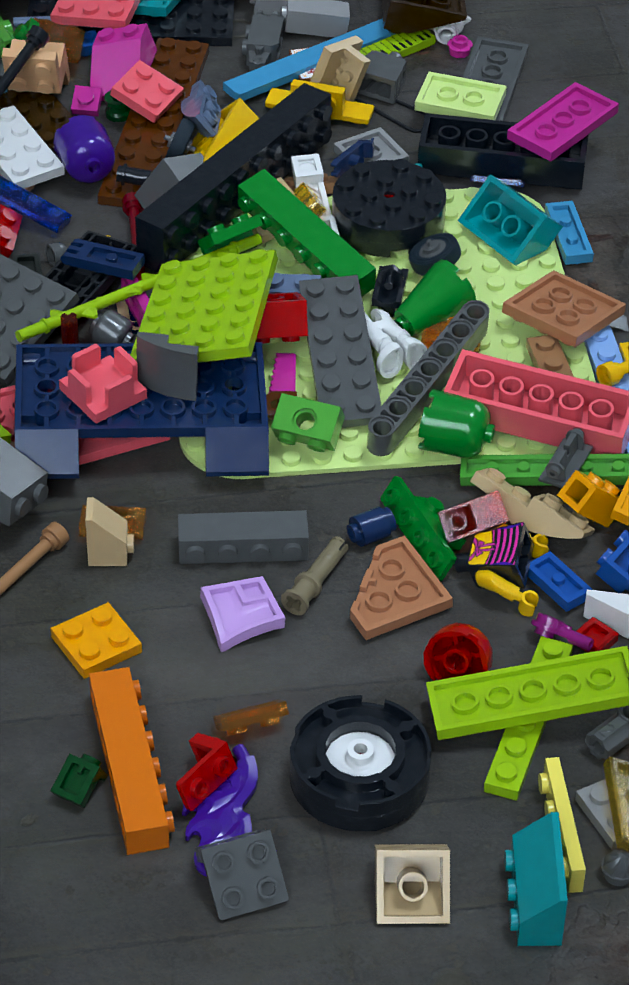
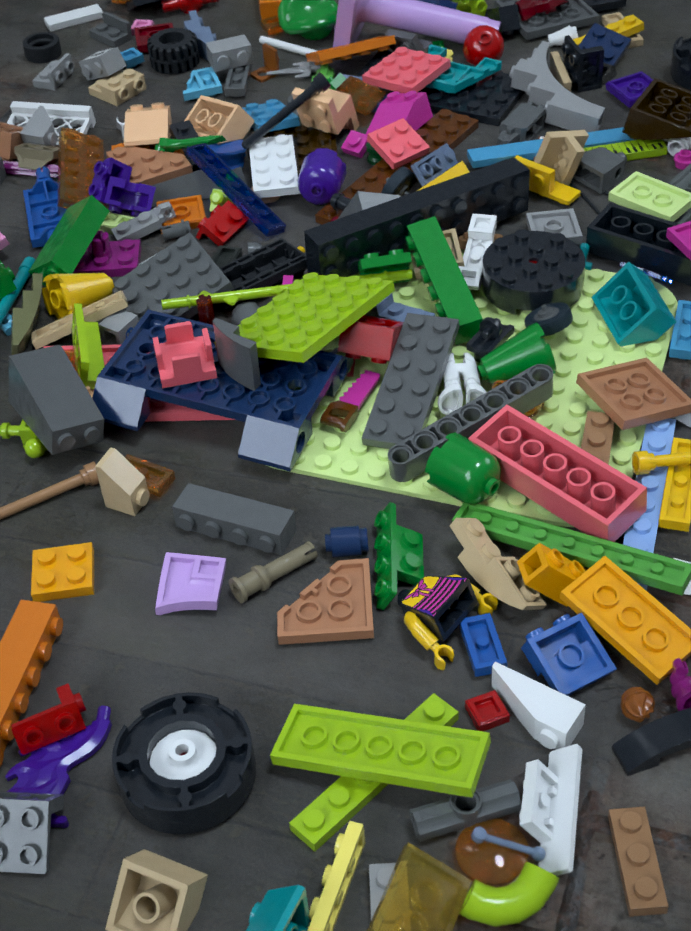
camera: 30 degrees right, 0 degrees up
(103, 259) = (271, 261): dark blue hinge -> none
(265, 713) = (118, 682): clear orange plate -> none
(295, 410) = (334, 424): bright green brick -> none
(310, 199) = (465, 251): clear yellow beam -> none
(352, 156) = (531, 223): dark blue piece -> none
(457, 651) = (340, 684): red cylinder -> none
(474, 517) = (434, 559): clear red slope -> none
(549, 626) = (449, 686): magenta plate -> none
(566, 459) = (549, 531): dark grey hinge -> none

